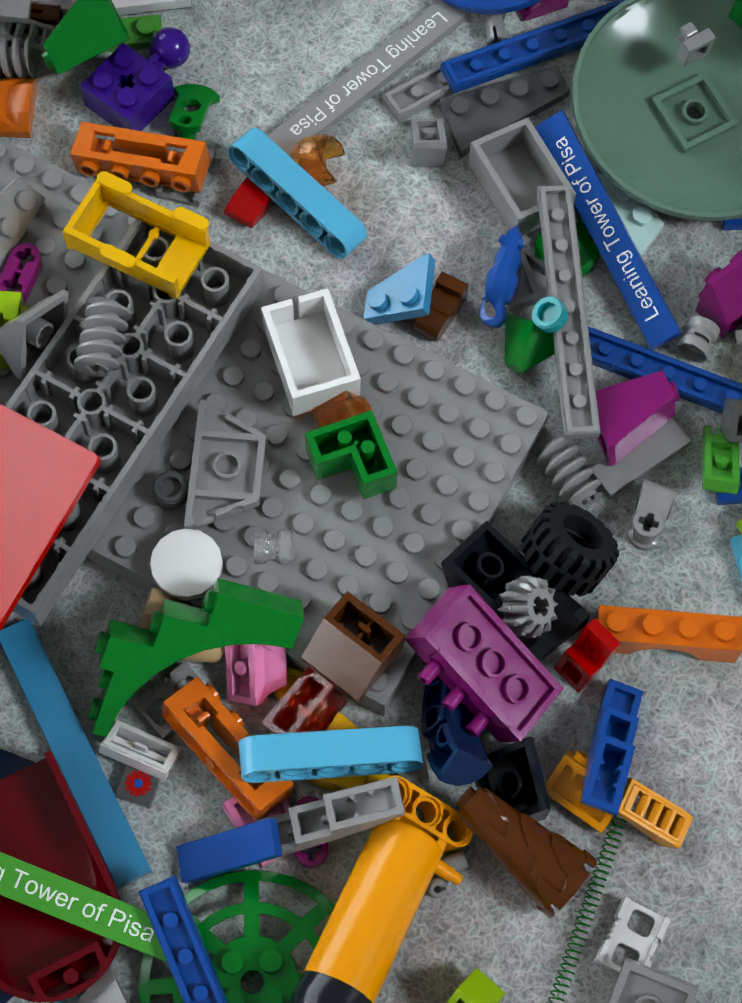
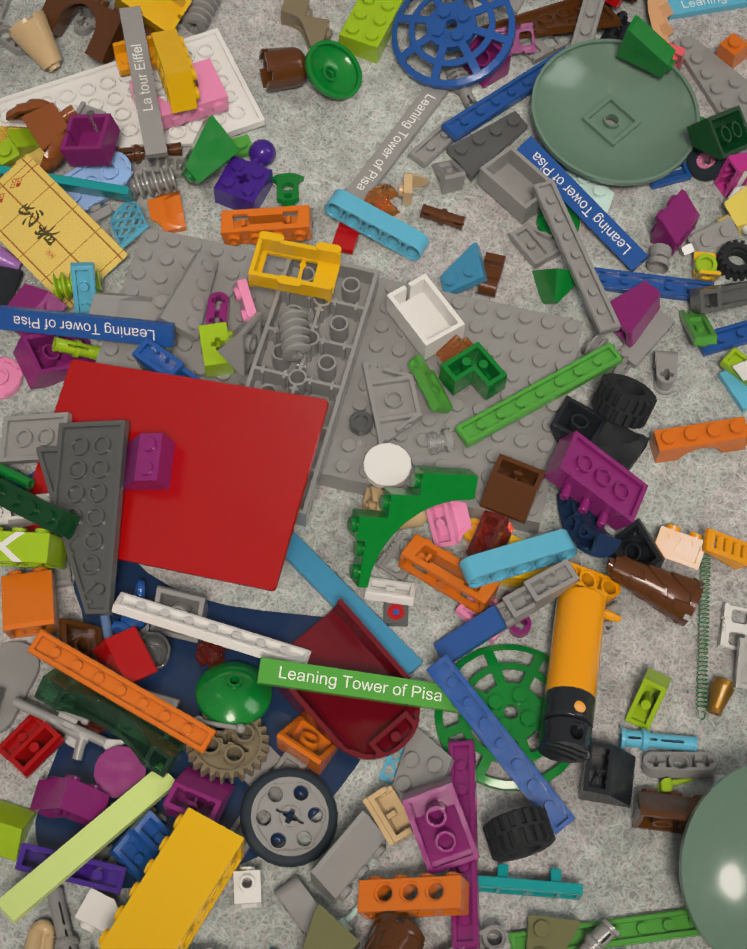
camera: 15 degrees left, 5 degrees down
(57, 255) = (244, 298): none -> bright pink wing
(287, 458) = (430, 385): none -> bright green hinge
(360, 148) = (411, 180): none -> tan plate
(399, 201) = (442, 216): none -> reddish brown pin
(443, 509) = (538, 395): none -> bright green tile
(502, 278) = (526, 248): blue animal -> none
(528, 606) = (612, 438): light grey gear -> none
(550, 314) = (566, 260): teal tile -> none
(587, 655) = (655, 463): red slope -> none
(611, 747) = (688, 514): blue slope -> none
(693, 44) = (602, 76): light grey tile -> none

